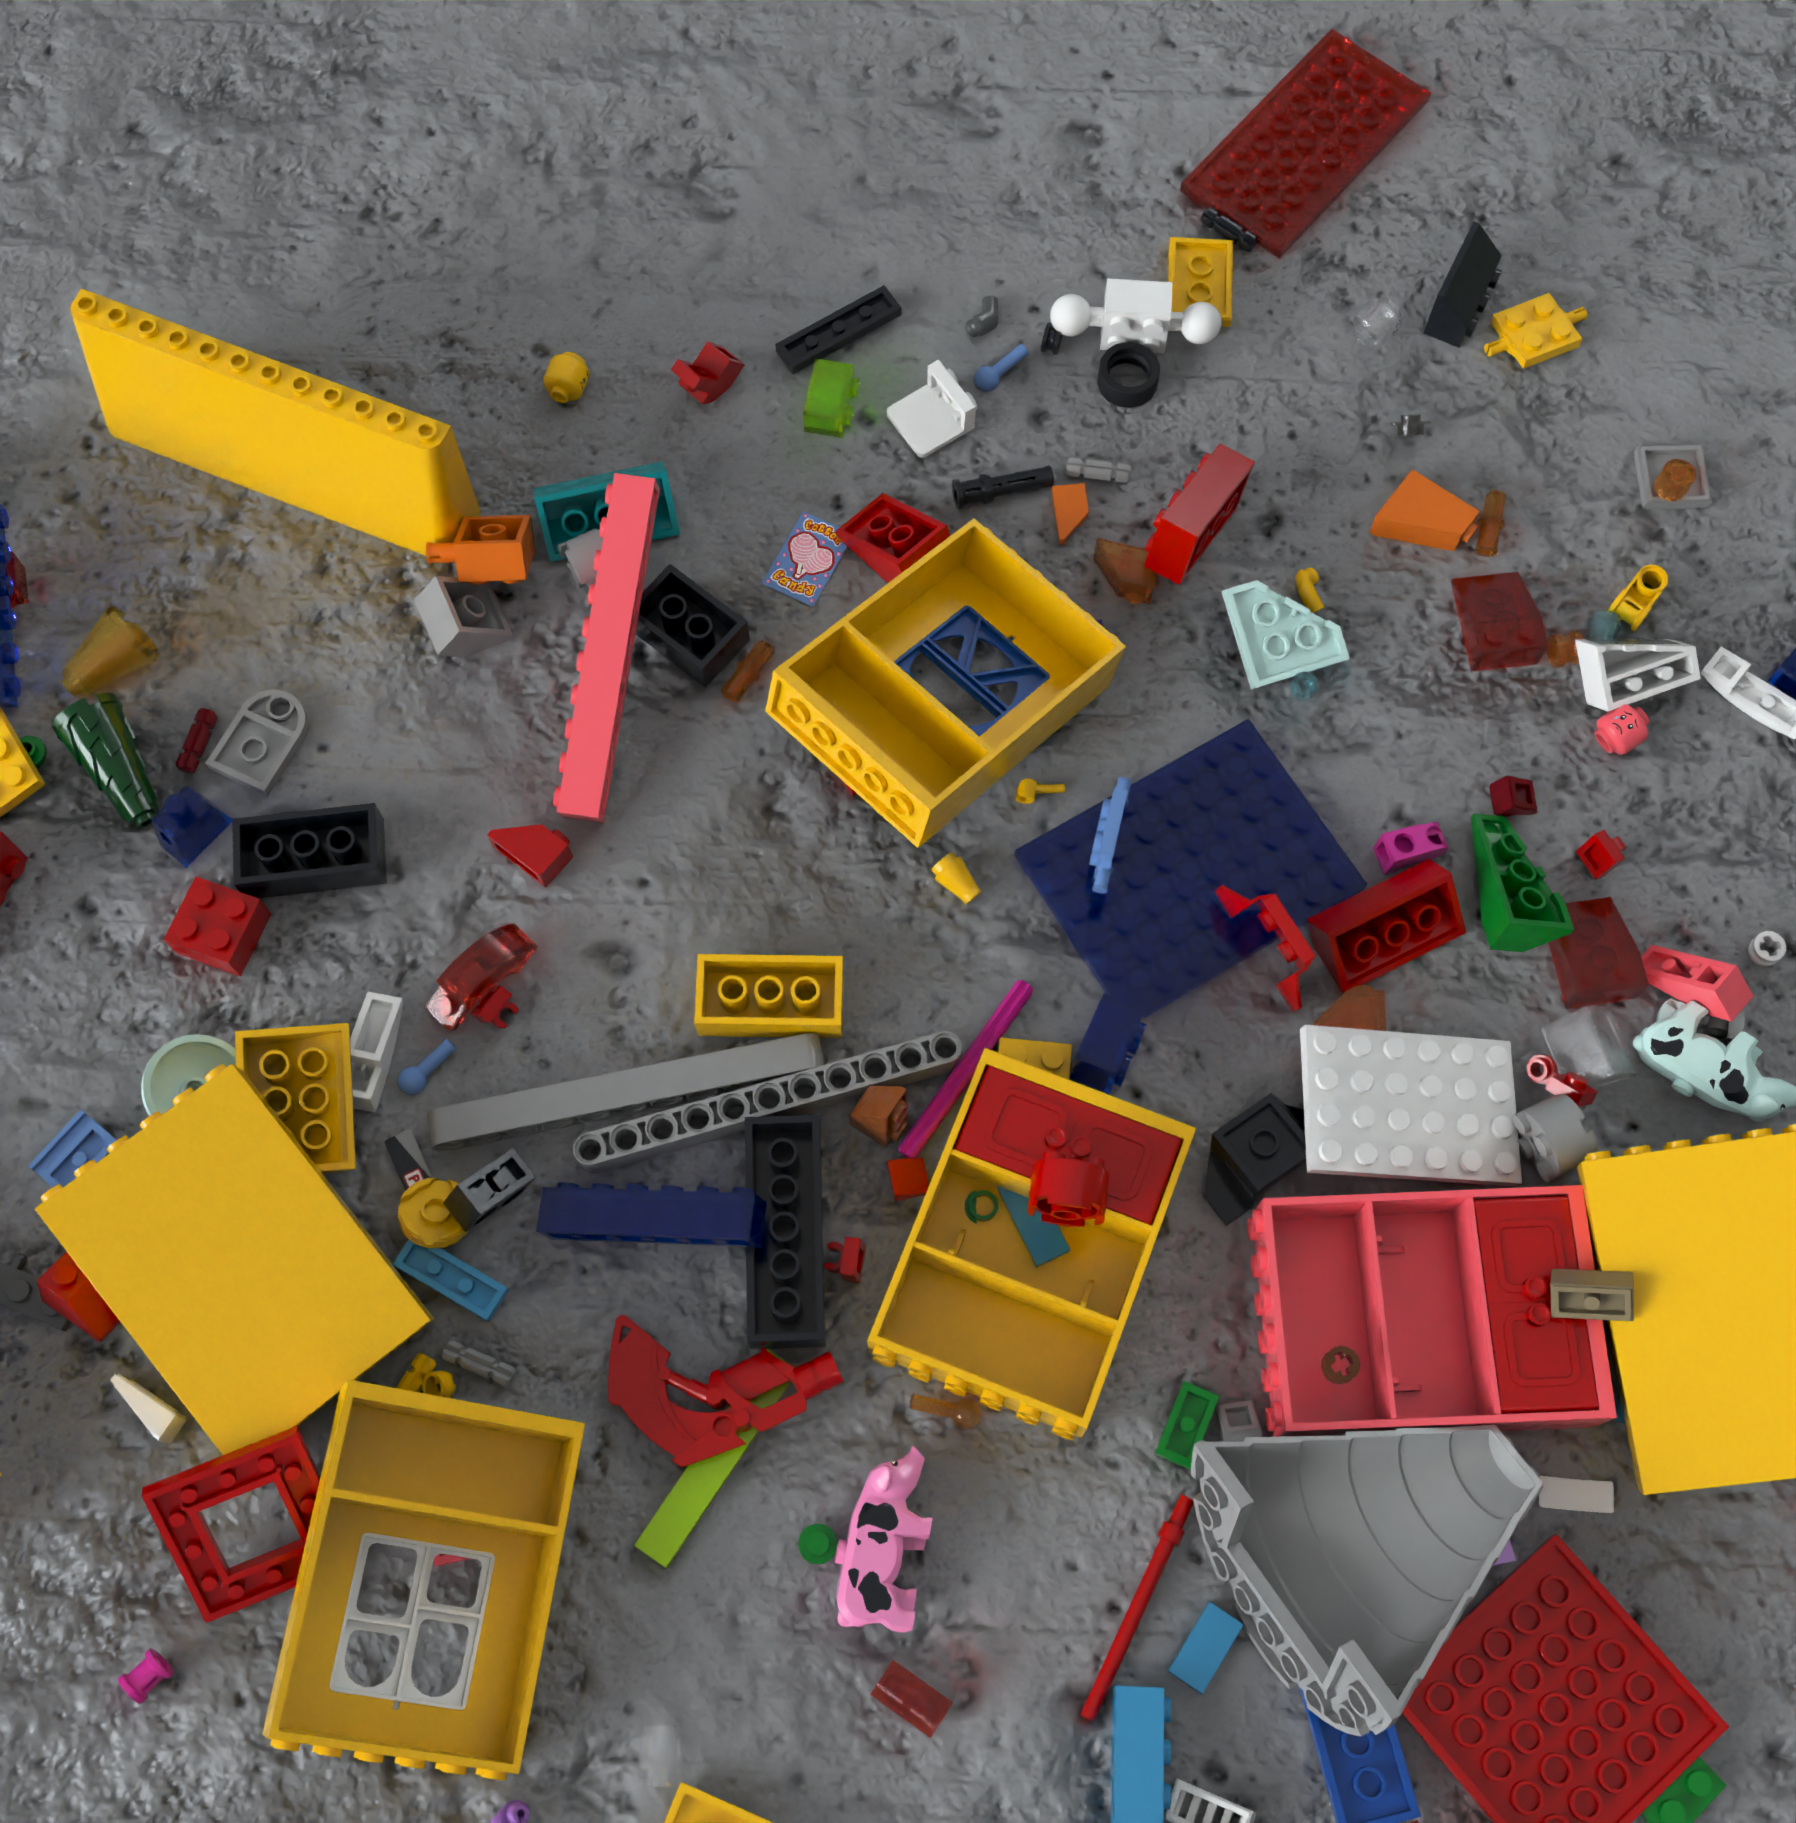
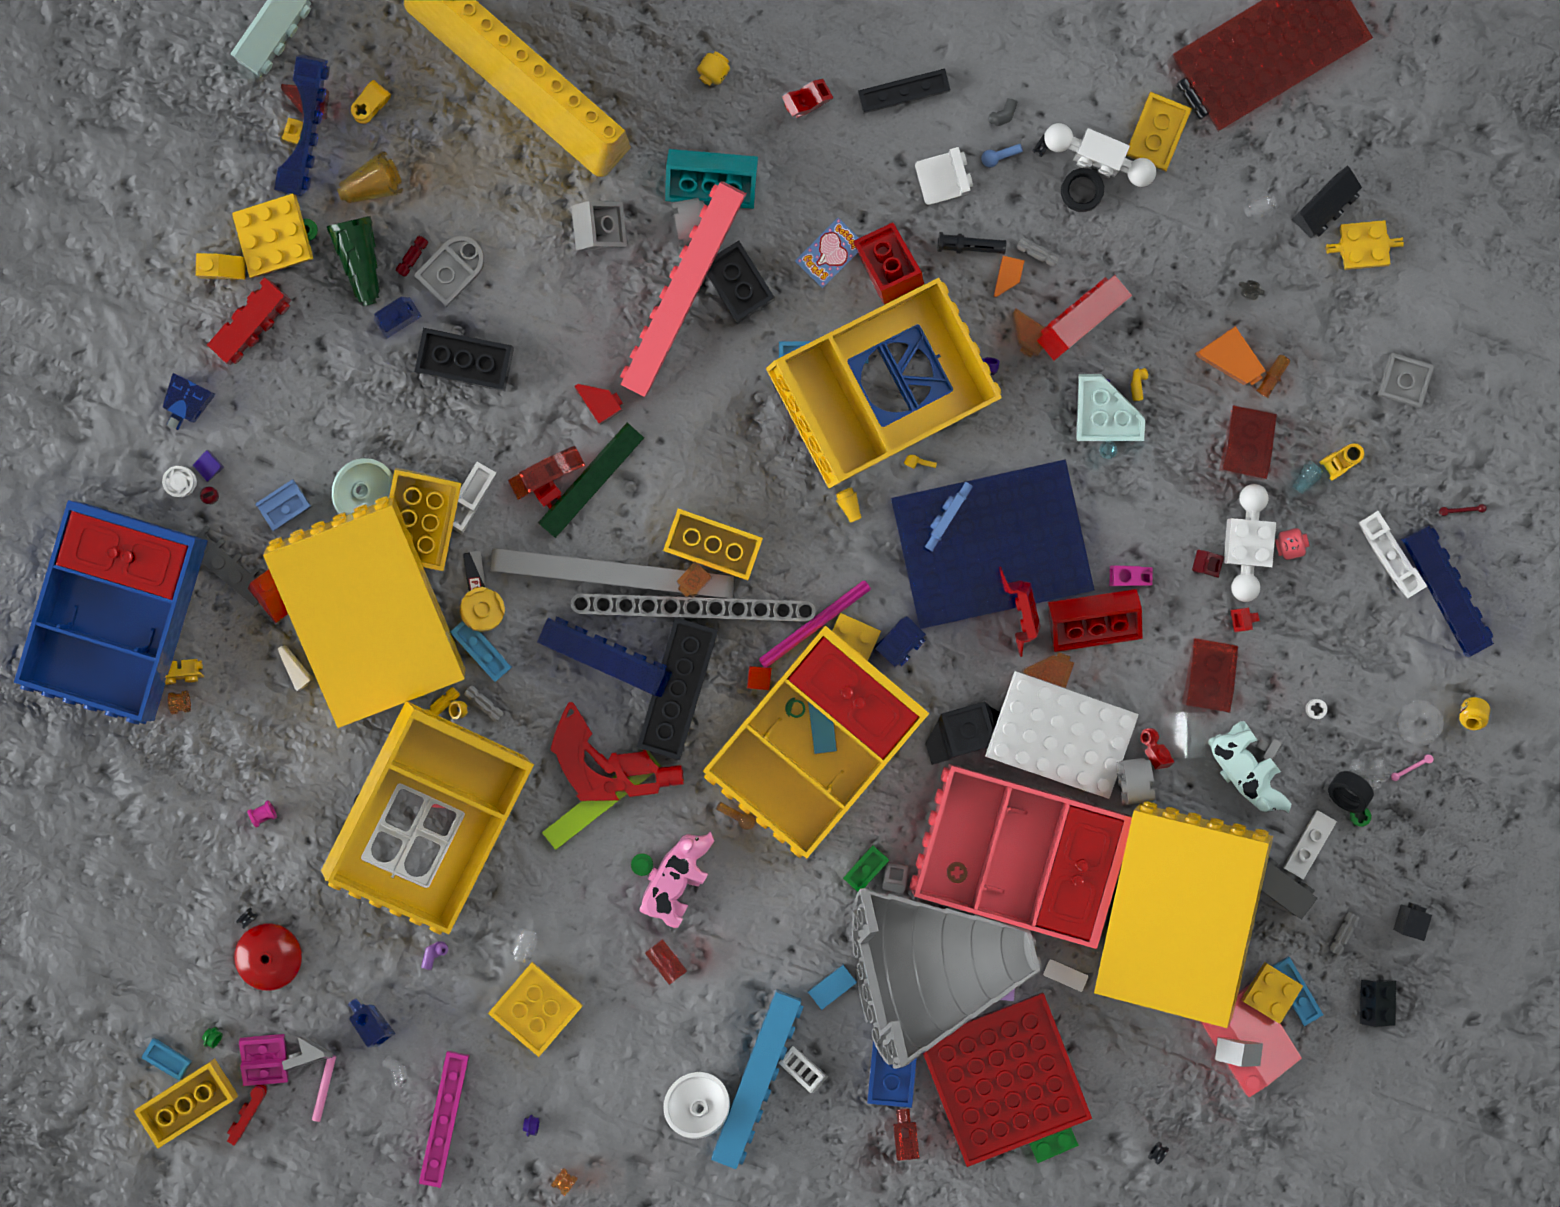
camera: 25 degrees right, 20 degrees up
(85, 554) = (372, 100): none -> yellow piece
(177, 1509) = (303, 737): red plate -> none
(217, 926) = (397, 389): red brick -> none
(414, 1079) = (490, 521): medium blue bar -> none
(488, 549) = (628, 188): orange brick -> none
(489, 1189) = (516, 609): black brick -> none
(552, 967) = (591, 480): none -> dark green tile
(747, 671) = (767, 322): clear orange axle -> none
(756, 1051) = (693, 580): none -> clear orange brick
(830, 397) = (881, 142): clear neon green brick -> none
(851, 1259) = (710, 715): red tile -> none
(881, 1114) = (754, 638): dark orange slope -> none
(1068, 1190) = (841, 730): red brick -> none
(1170, 1536) = (835, 923): red bar -> none
(1513, 898) = (1179, 628): green wedge -> none
(1562, 745) = (1249, 542): none -> white brick
(1563, 648) = (1281, 479): clear orange wheel -> none
(1592, 1294) = (1109, 882): dark tan slope -> none
(1633, 669) = (1315, 509): white wedge -> none
(1672, 471) = (1406, 387): clear orange wheel -> none
(1698, 979) = (1258, 717): coral slope -> none

